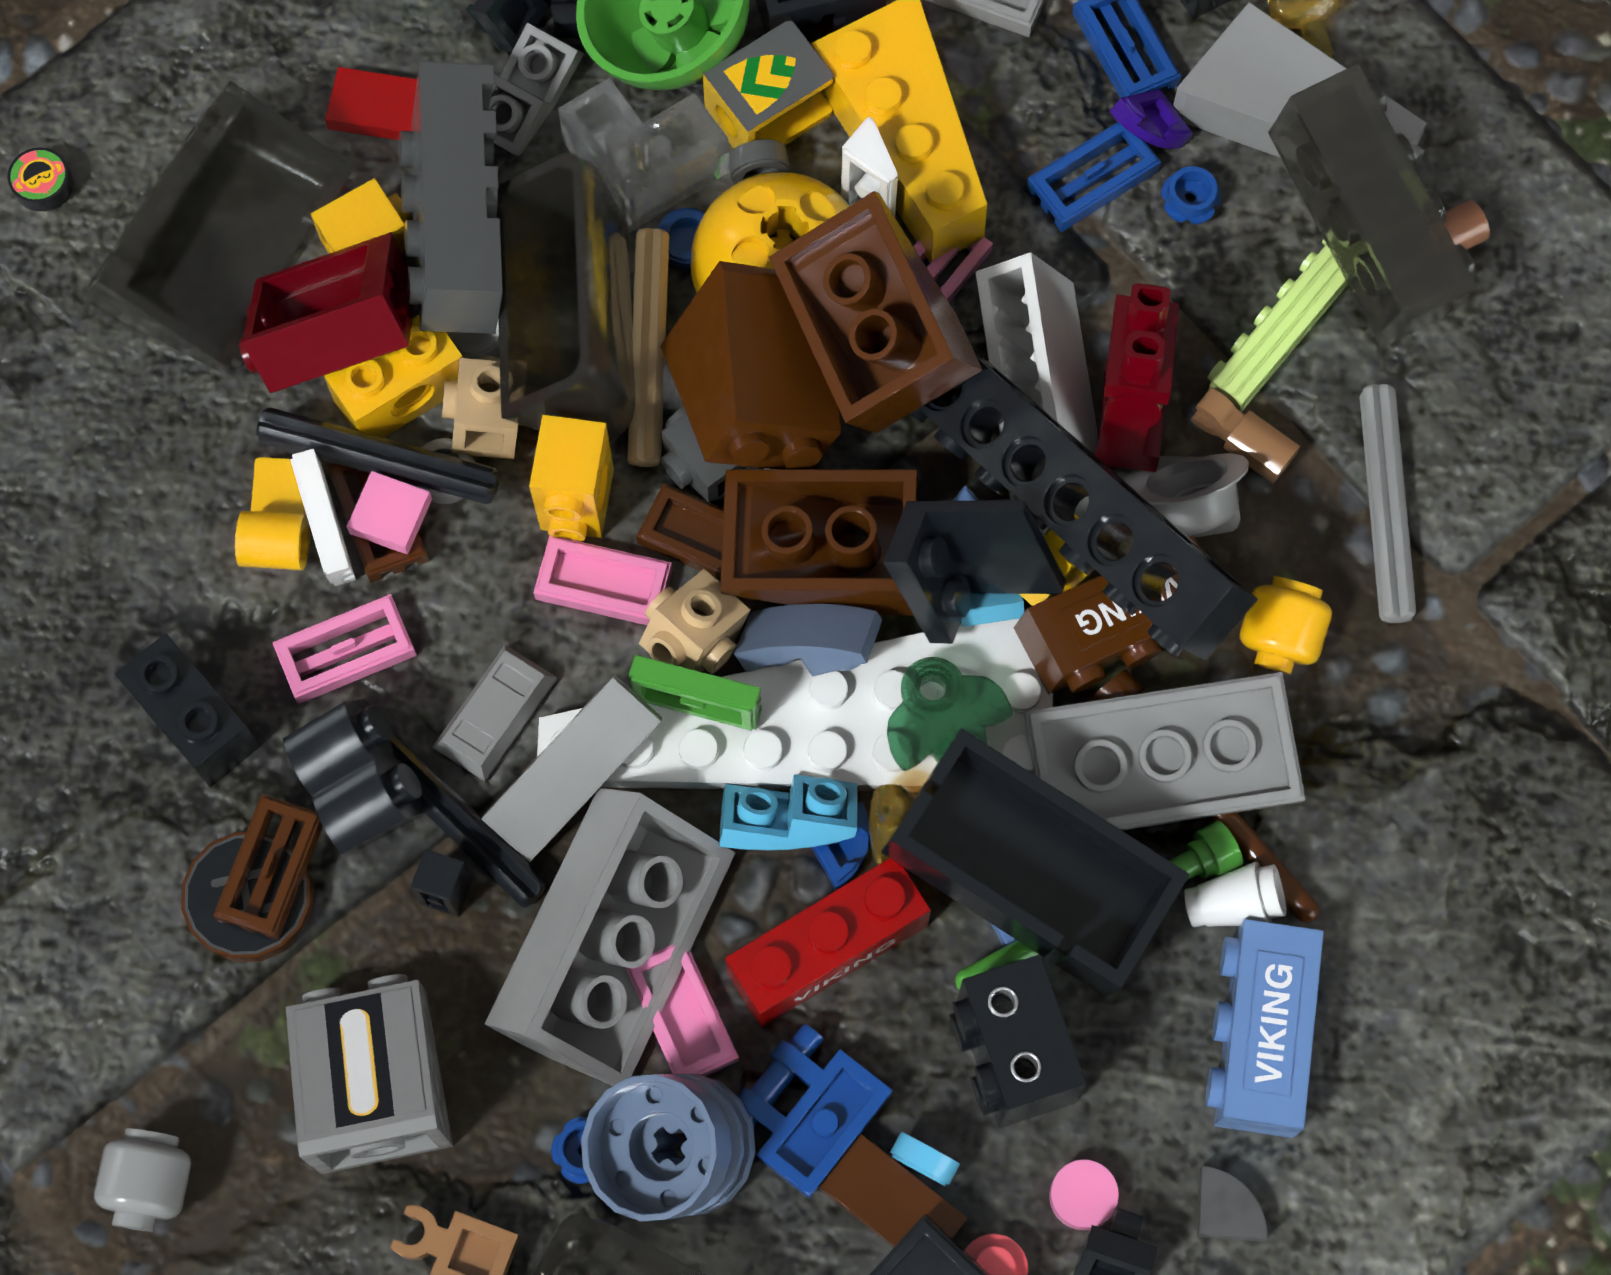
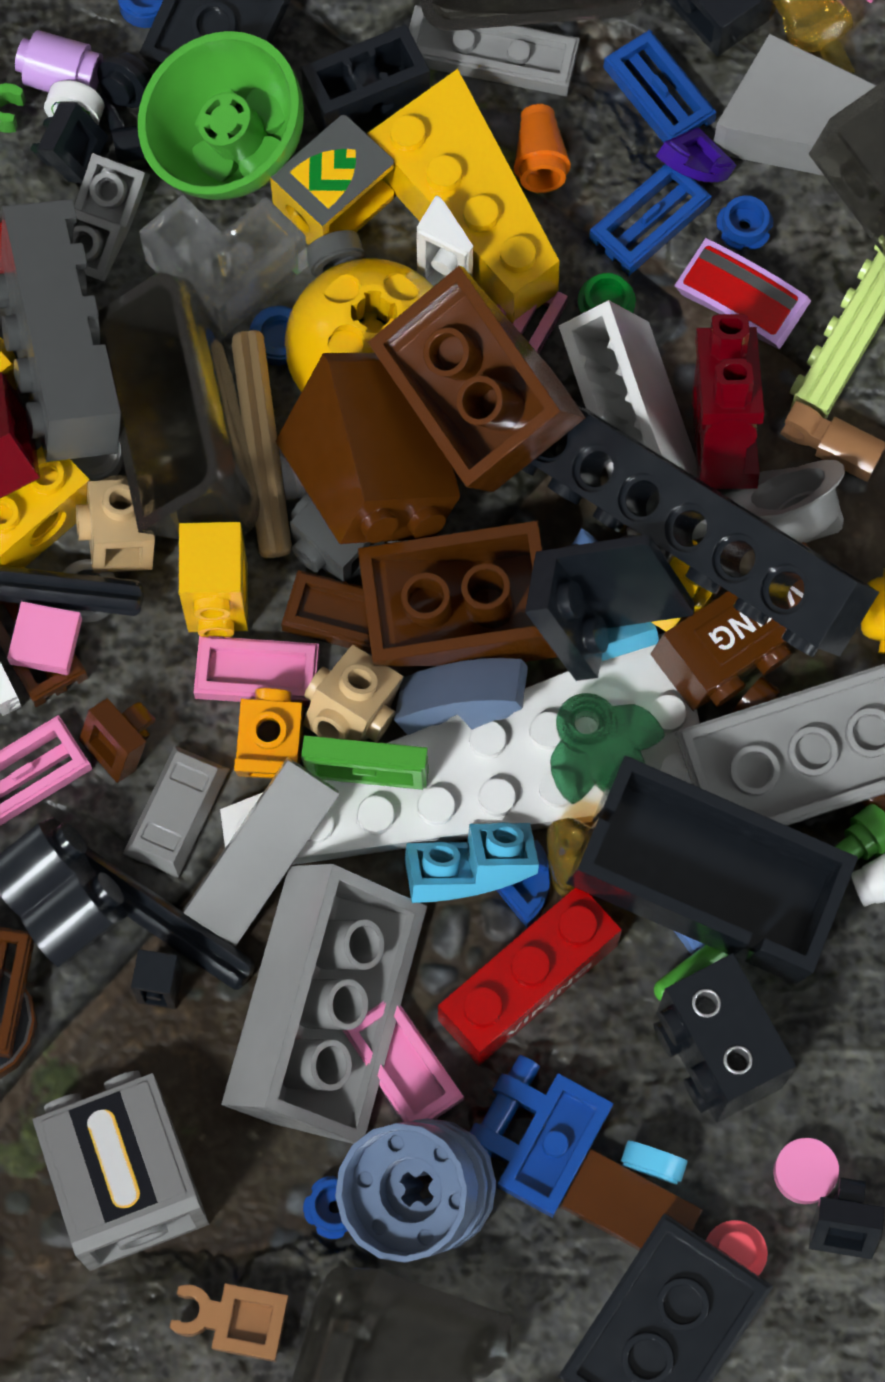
camera: 10 degrees left, 0 degrees up
(446, 626) = (115, 737): none -> reddish brown tile
(591, 672) = (262, 758): none -> light orange brick
(990, 89) = (540, 151): none -> orange cone
(1037, 241) = (604, 288): none -> green plate
(1170, 258) = (738, 286): none -> slope

